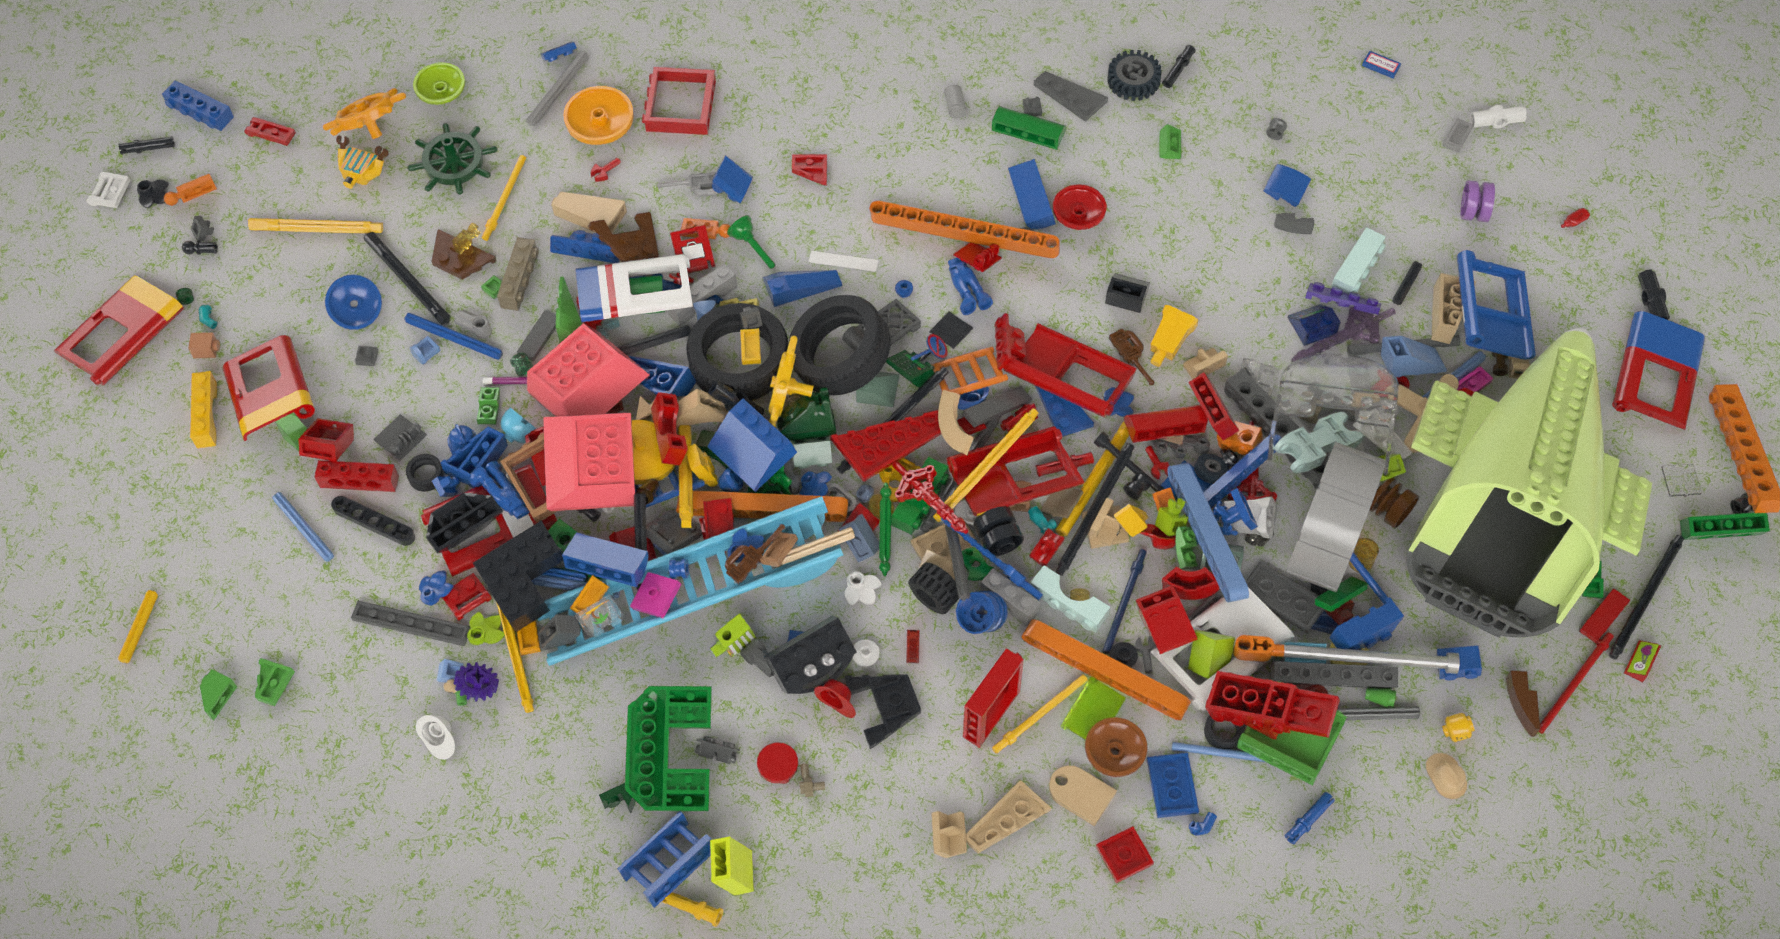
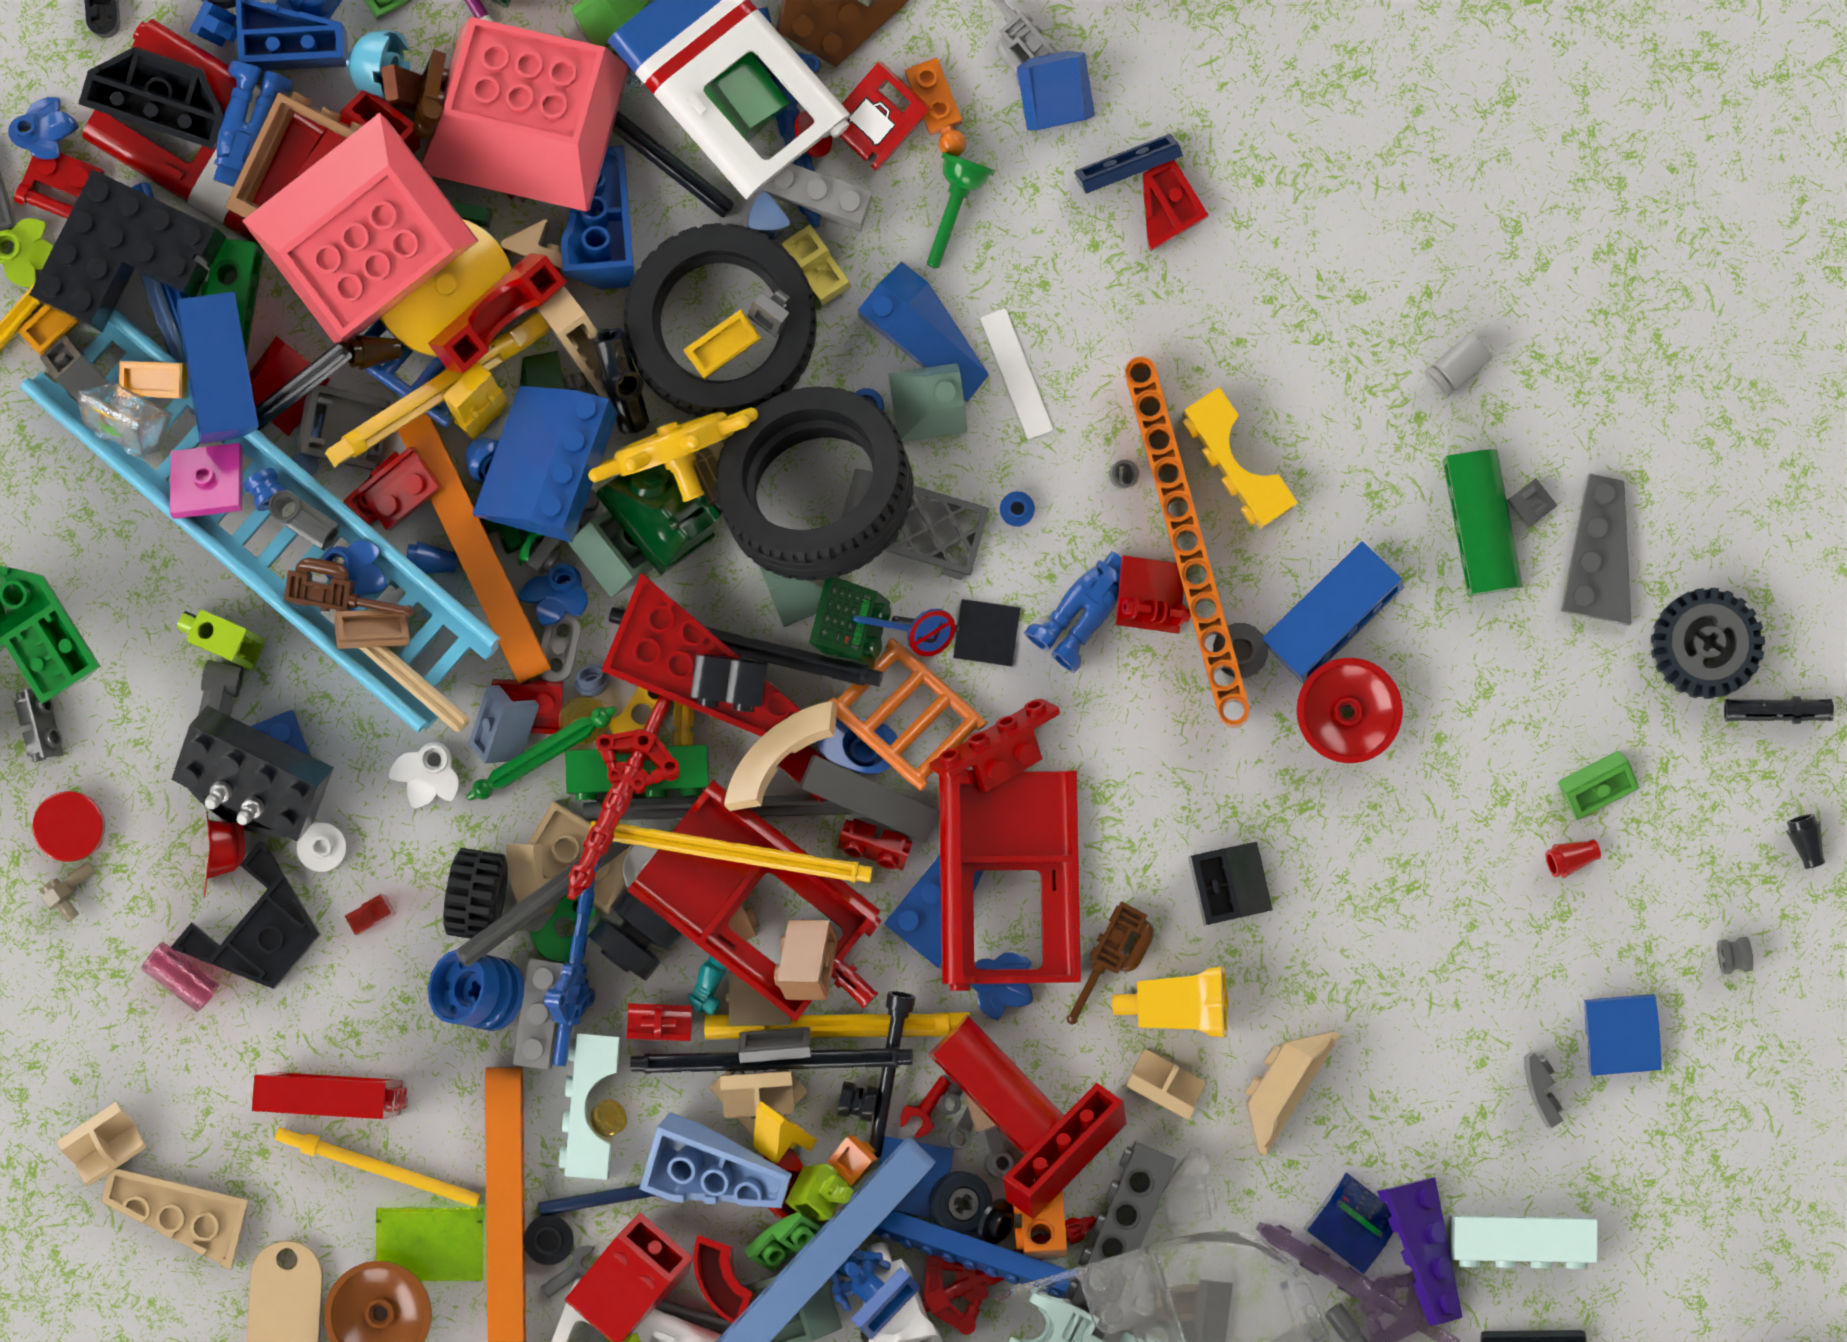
camera: 55 degrees right, 25 degrees up
(533, 418) = (401, 86): none -> copper tile
(546, 408) = (430, 97): none -> reddish brown hinge
(705, 556) = (305, 520): none -> dark grey piece
(783, 172) = (1128, 163): none -> dark blue tile
(832, 284) = (928, 402): none -> sand green slope
(887, 750) = (180, 976): none -> clear pink pin
(905, 425) = (729, 681): none -> black brick
(917, 240) = (1130, 474): none -> dark grey hinge
(960, 197) = (1262, 496): none -> yellow arch
(1057, 461) = (806, 960): none -> brick
(1089, 501) = (774, 1044): none -> dark grey tile
(1128, 563) = (705, 1166): none -> medium blue wedge
(1196, 165) = (1570, 857): none -> red cone
(1235, 317) = (1284, 1084): none -> tan wedge
(1241, 82) = (1807, 839): none -> black cone

